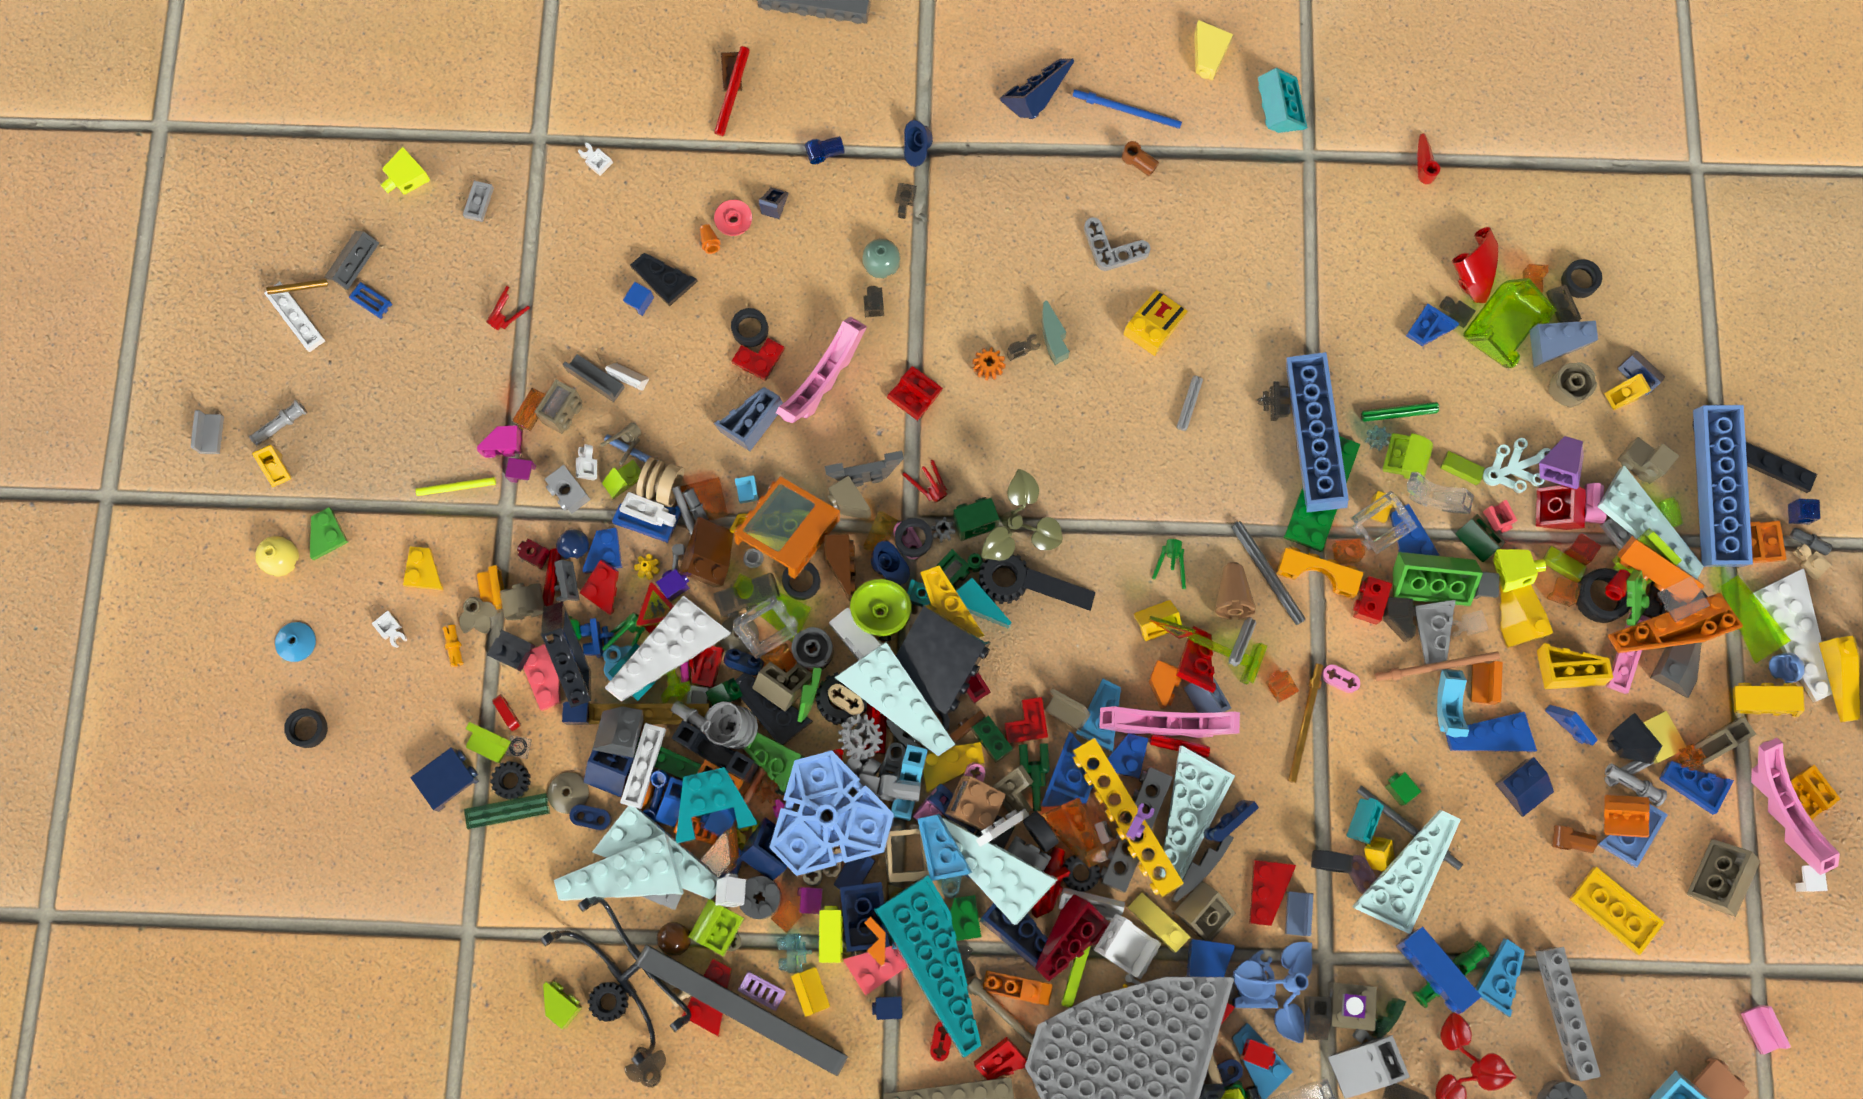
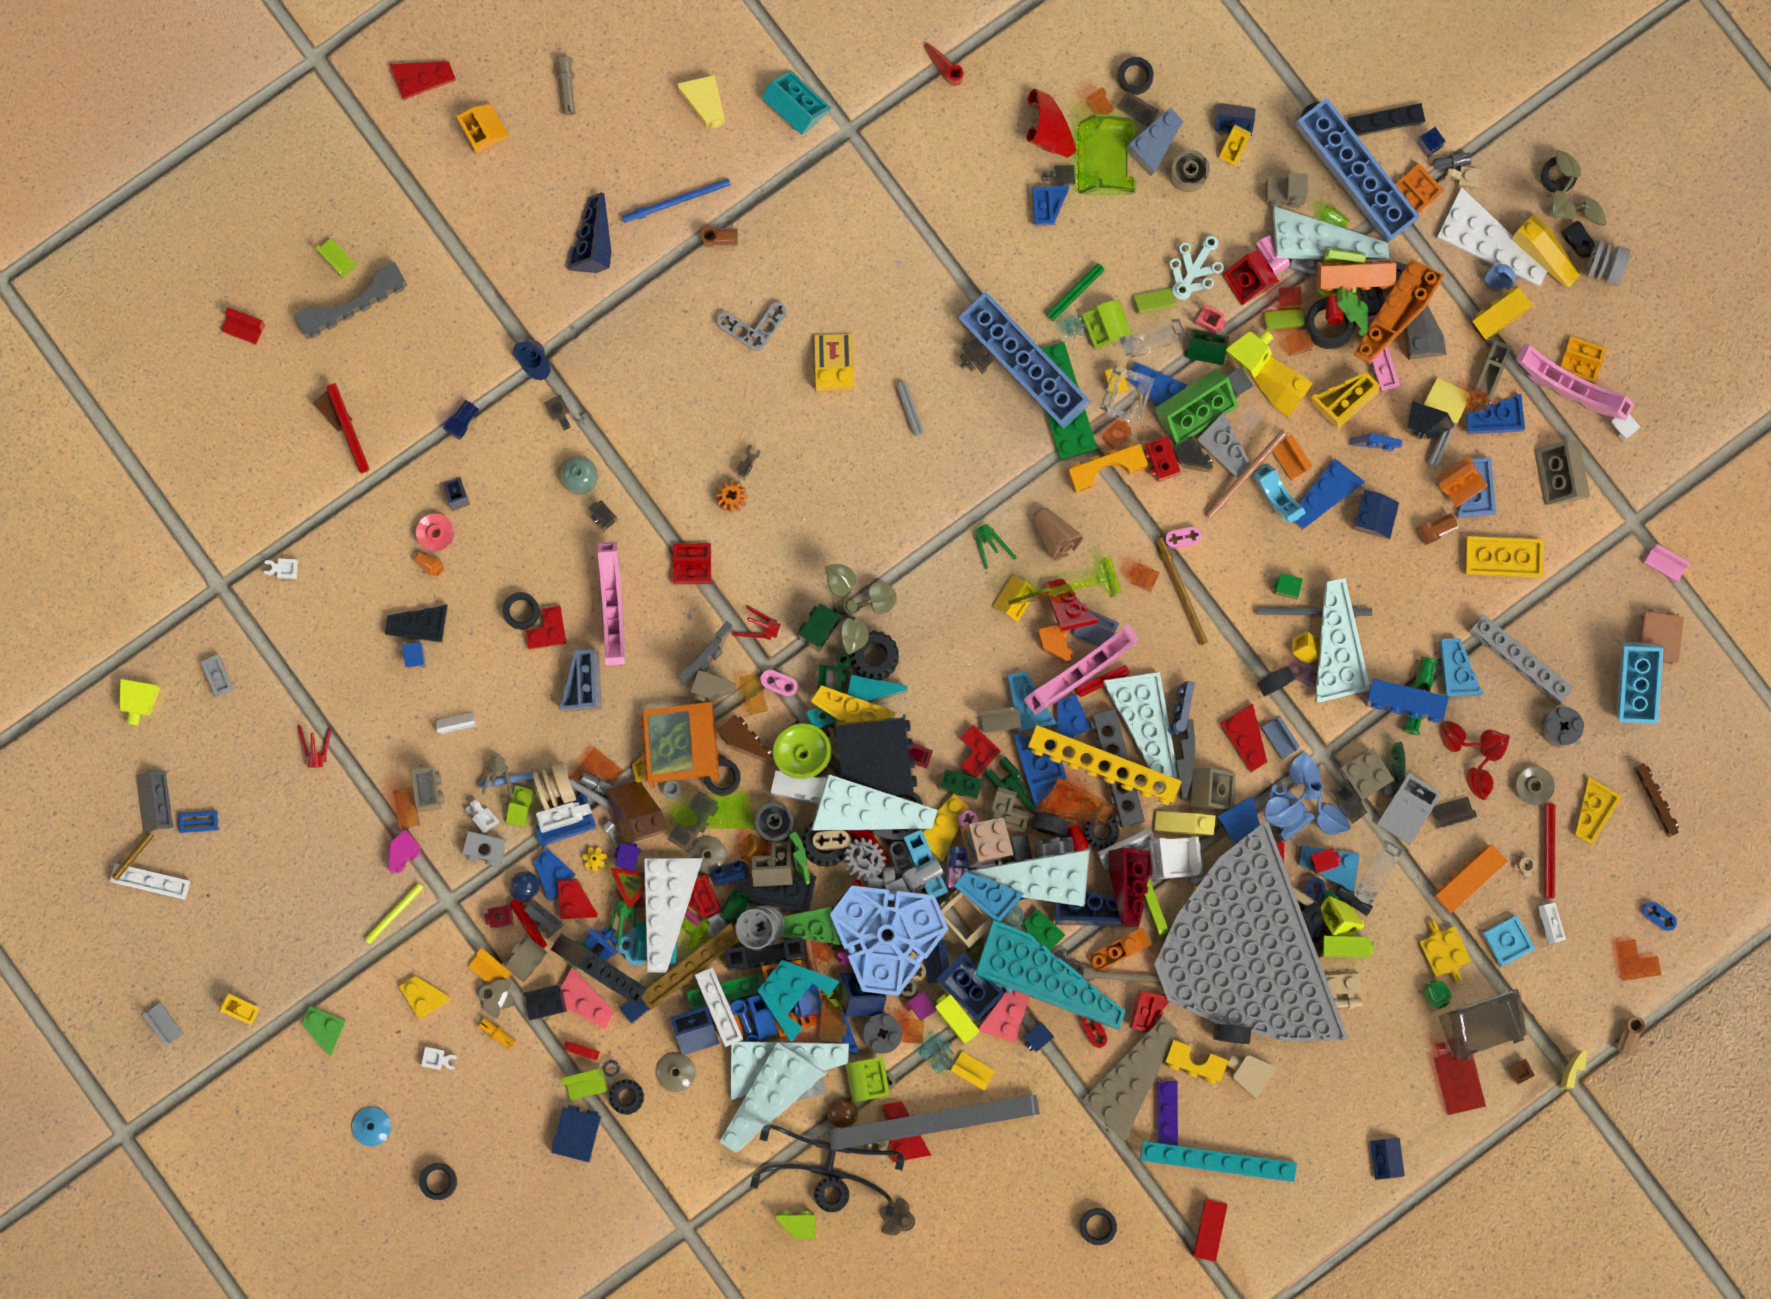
camera: 40 degrees left, 5 degrees up
(276, 556) = (301, 1074): light yellow cylinder -> none
(285, 417) = (213, 966): light grey pin -> none
(507, 811) = (642, 1121): clear green tile -> none
(519, 469) = (435, 862): magenta panel -> none
(591, 817) = (708, 1075): dark blue plate -> none
(594, 377) = (431, 745): dark grey panel -> none
(619, 731) = (681, 996): dark grey slope -> none
(691, 716) = (726, 942): light grey pin -> none
(730, 891) = (859, 1044): white brick -> none
(743, 989) = (936, 1091): lavender slope -> none
(747, 489) = (624, 740): medium azure panel -> none
(748, 637) = (740, 838): clear window -> none
(877, 950) = (999, 1000): orange slope -> none
(889, 563) = (780, 712): dark blue piece -> none
(910, 522) = (783, 664): black tyre -> none
(939, 524) = (801, 650): dark grey gear -> none
(966, 725) = (933, 789): reddish brown plate -> none
(1001, 826) = (1019, 842): white plate -> none
(1049, 899) = (1094, 870): red wing -> none
(1054, 335) = (763, 434): sand green slope -> none
(1059, 589) = (923, 632): black sticker -> none
(1103, 832) = (1096, 788): light grey plate -> none
(1136, 827) = (1117, 766): medium lavender plate -> none
(1242, 641) = (1090, 567): light grey axle -> none
(1268, 573) = (1069, 497): dark grey axle -> none
(1353, 1005) = (1366, 773): tile -> none
(1365, 820) = (1278, 631): teal panel -> none
(1563, 463) = (1227, 241): medium lavender slope -> none
(1642, 788) = (1460, 450): light grey pin -> none
(1683, 599) = (1387, 286): clear piece -> none
(1759, 628) = (1451, 257): clear neon green wing -> none

